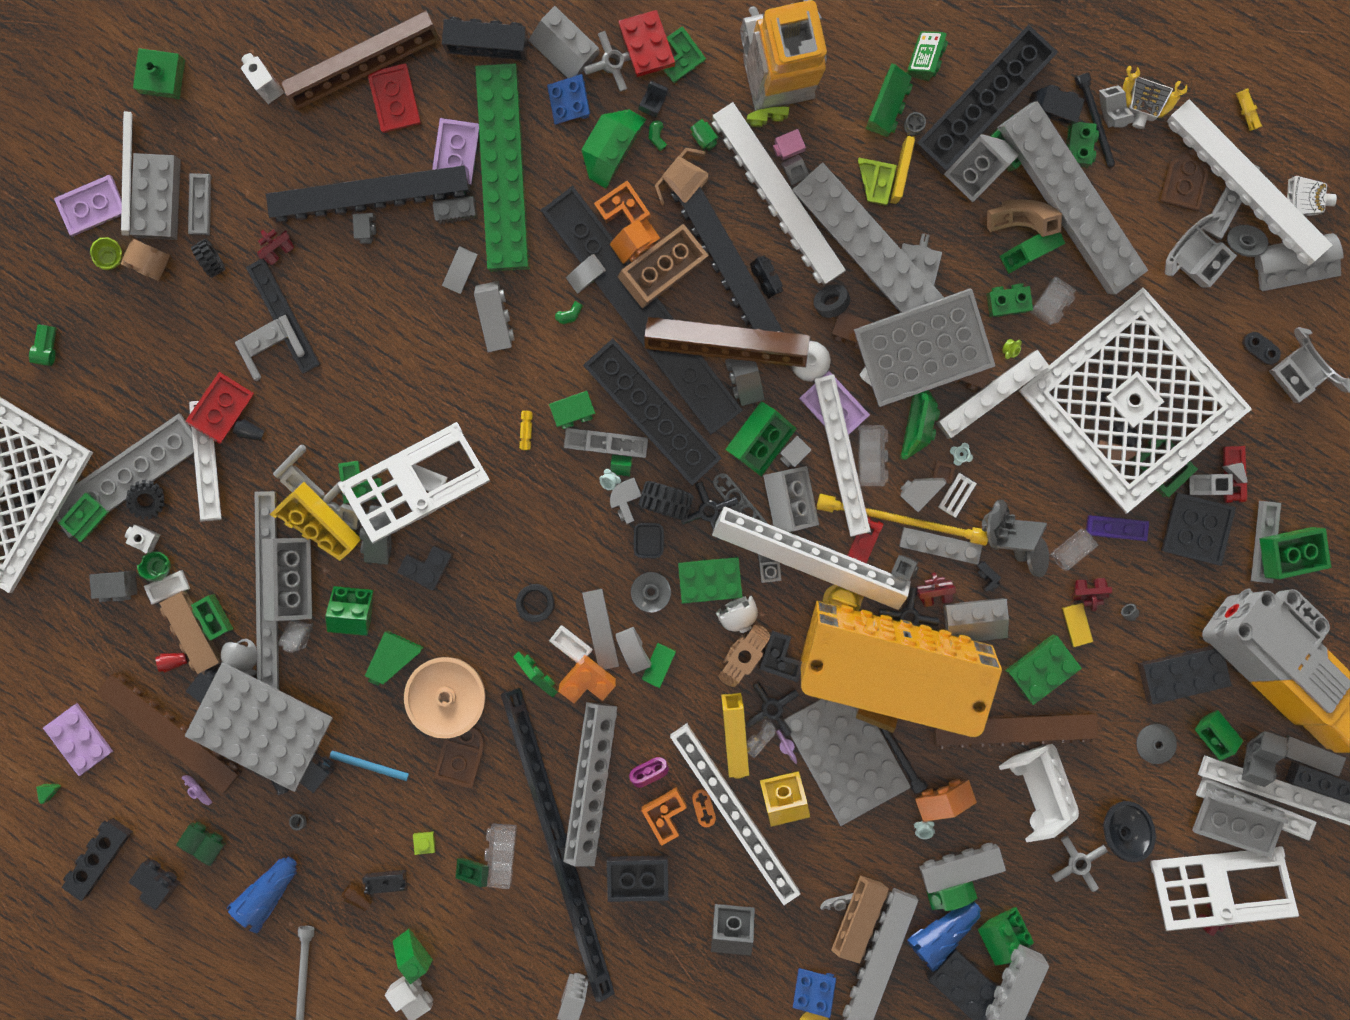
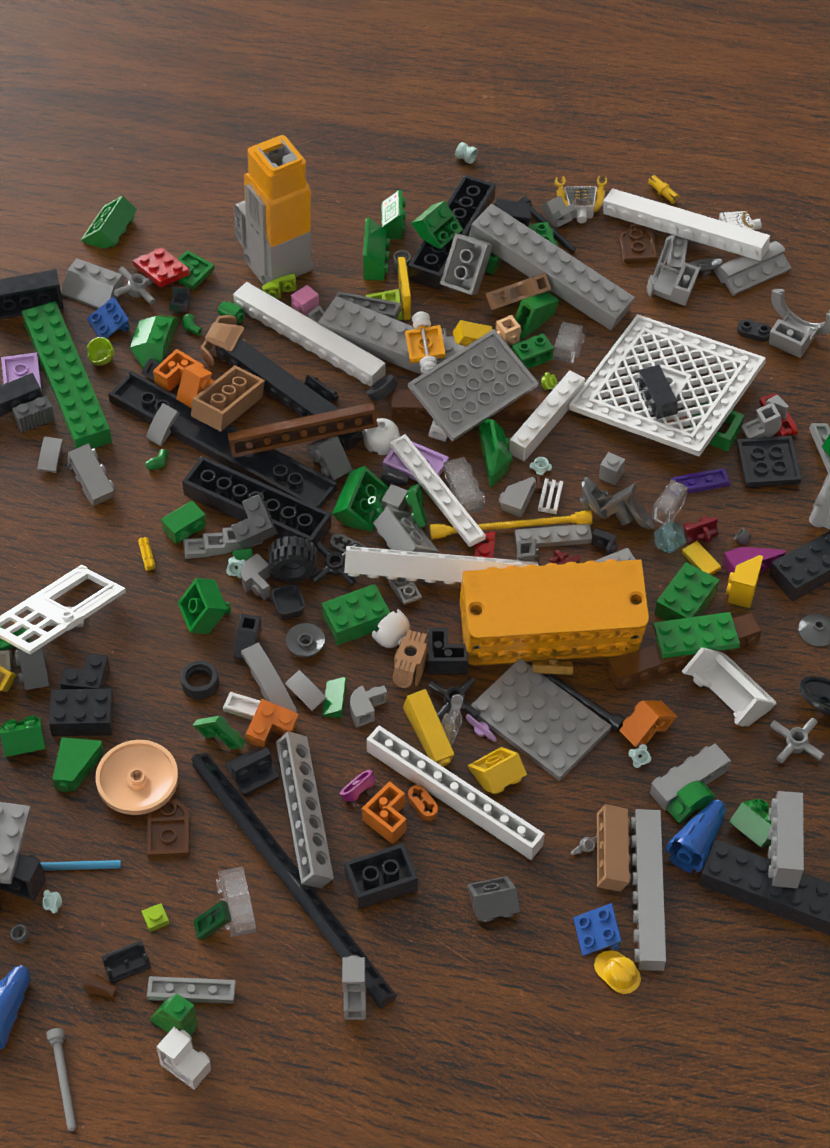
camera: 15 degrees left, 35 degrees down
(334, 798) = (52, 901): none -> light aqua plate
(411, 604) = (81, 712): none -> black brick
(435, 928) = (192, 989): none -> light grey plate
(547, 147) = (100, 351): none -> lime hair
(555, 720) = (252, 770): none -> black bracket
(561, 526) = (203, 606): none -> green brick
(594, 572) = (247, 634): none -> black slope
(597, 189) = (150, 366): none -> black plate
(643, 452) = (257, 526): none -> dark grey brick
(680, 685) = (363, 702): none -> light grey brick
(775, 464) = (376, 505): none -> green arm
(805, 418) = (394, 476): none -> black cone
(813, 468) = (415, 500): none -> green plate
(854, 176) = (384, 307): none -> dark grey tile
(893, 275) = (424, 342): none -> light orange plate
(953, 264) = (468, 332): none -> yellow brick
(967, 100) = (437, 225): none -> green slope
(998, 262) = (508, 330): none -> light nougat brick
(1031, 725) = (691, 634): none -> green plate
(1032, 486) = (611, 468): none -> light grey brick
(1055, 594) = (669, 537): none -> clear light blue brick
(1108, 677) = (743, 582): none -> yellow slope
(1116, 418) = (657, 392): none -> black brick
(1116, 645) = (743, 554): none -> magenta slope

